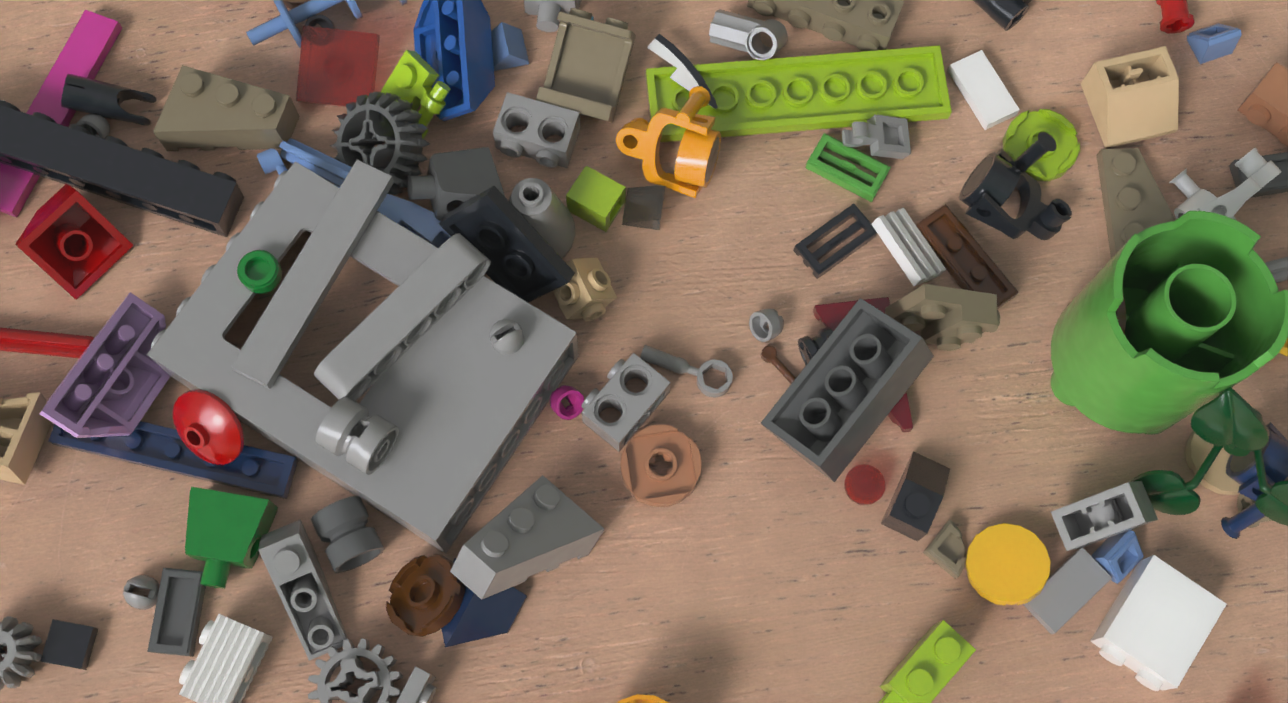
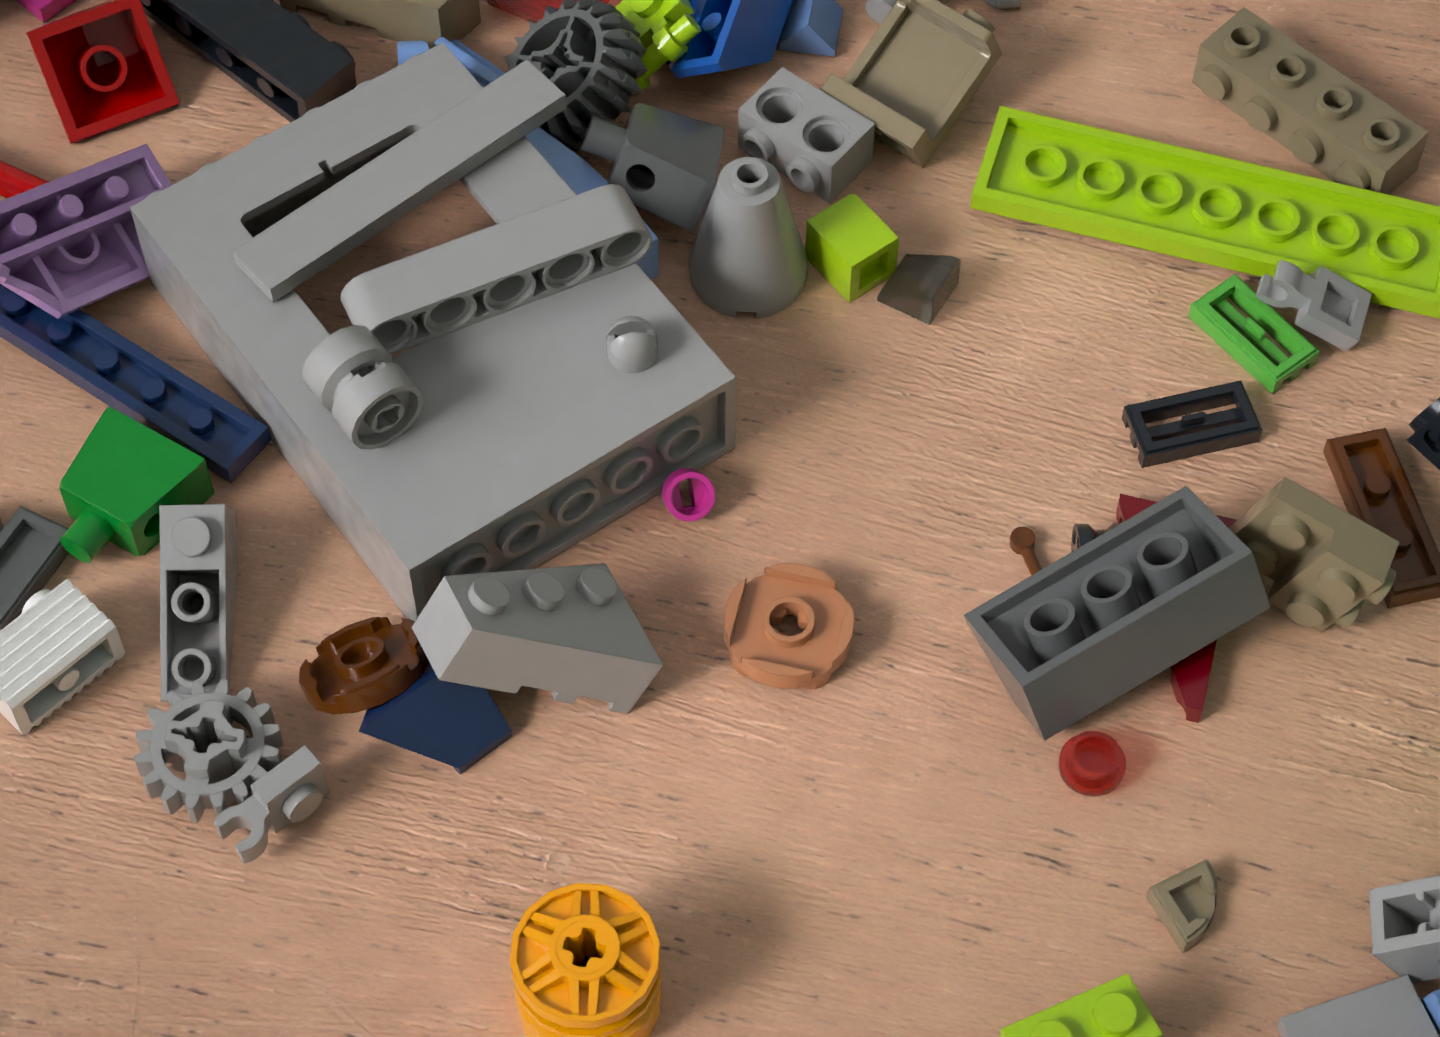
camera: 25 degrees right, 15 degrees down
(208, 427) = (168, 333): red dish -> none
(259, 271) = (328, 154): green tile -> none
(349, 537) = (292, 549): dark grey wheel -> none
(517, 252) = (695, 243): black plate -> none
(586, 292) = (777, 350): tan brick -> none
(633, 406) = (780, 530): light grey brick -> none
(681, 366) = (881, 510): light grey piece -> none
(686, 73) = (1057, 130): sticker -> none
(697, 149) = (1023, 225): light orange piece -> none
(744, 34) = (1172, 108): light grey piece -> none
(762, 318) = (1034, 494): light grey hinge -> none
(908, 247) = (1299, 450): white tile -> none
(917, 497) = (1162, 808): black slope -> none
(1007, 564) = (1272, 953): yellow tile -> none

